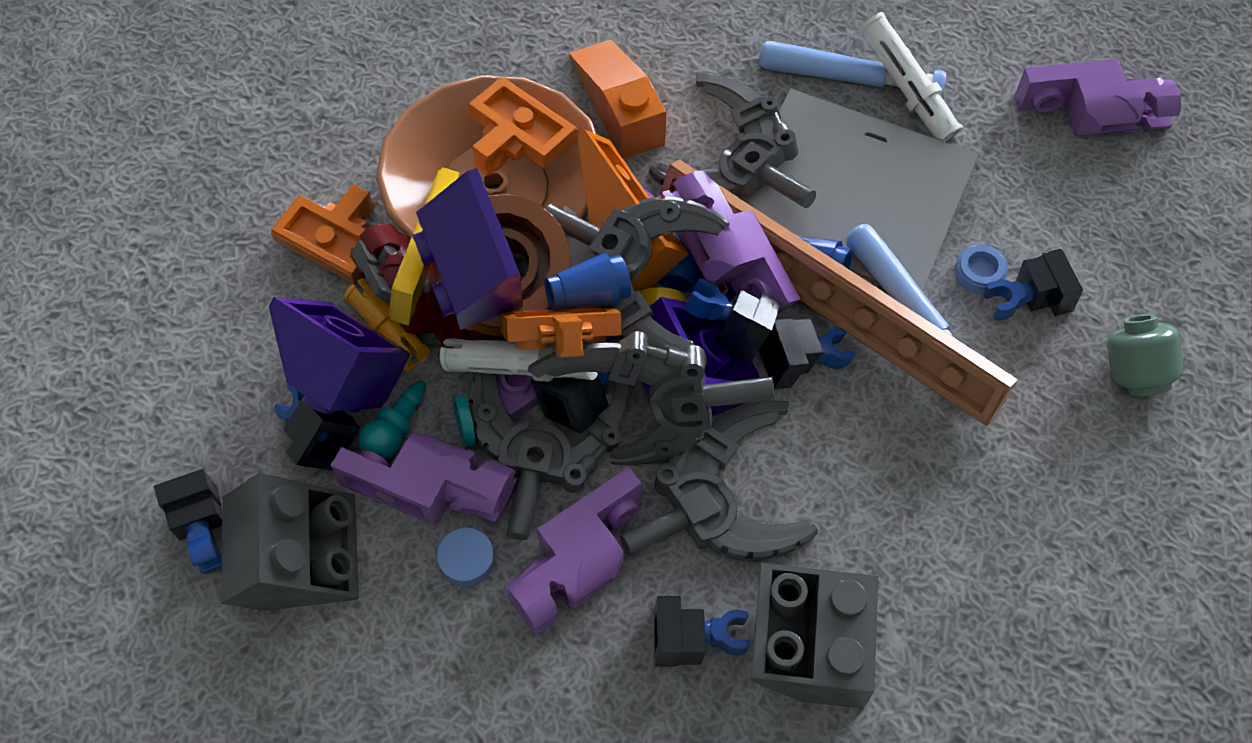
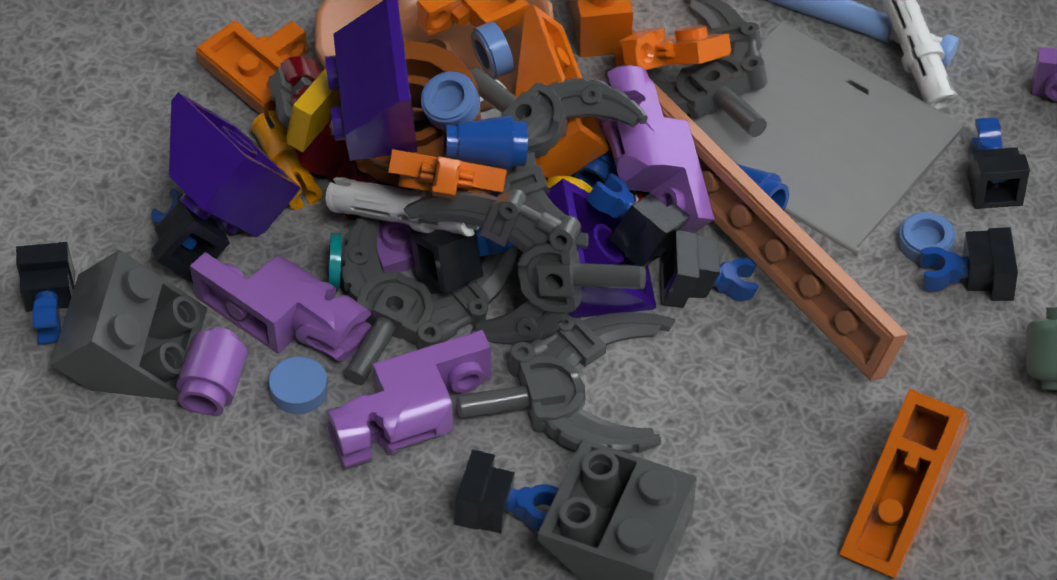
camera: 15 degrees right, 10 degrees down
(380, 566) = (211, 371): none -> medium lavender brick
(391, 424) = (260, 248): teal bar -> none
(541, 249) = (450, 99): none -> medium blue tile
(556, 180) = (492, 50): none -> medium blue tile
(693, 143) = (652, 49): none -> orange hinge
(891, 274) = (824, 220): light blue piece -> none
(1020, 195) = (996, 173): none -> black piece
(1054, 525) = (905, 482): none -> orange slope

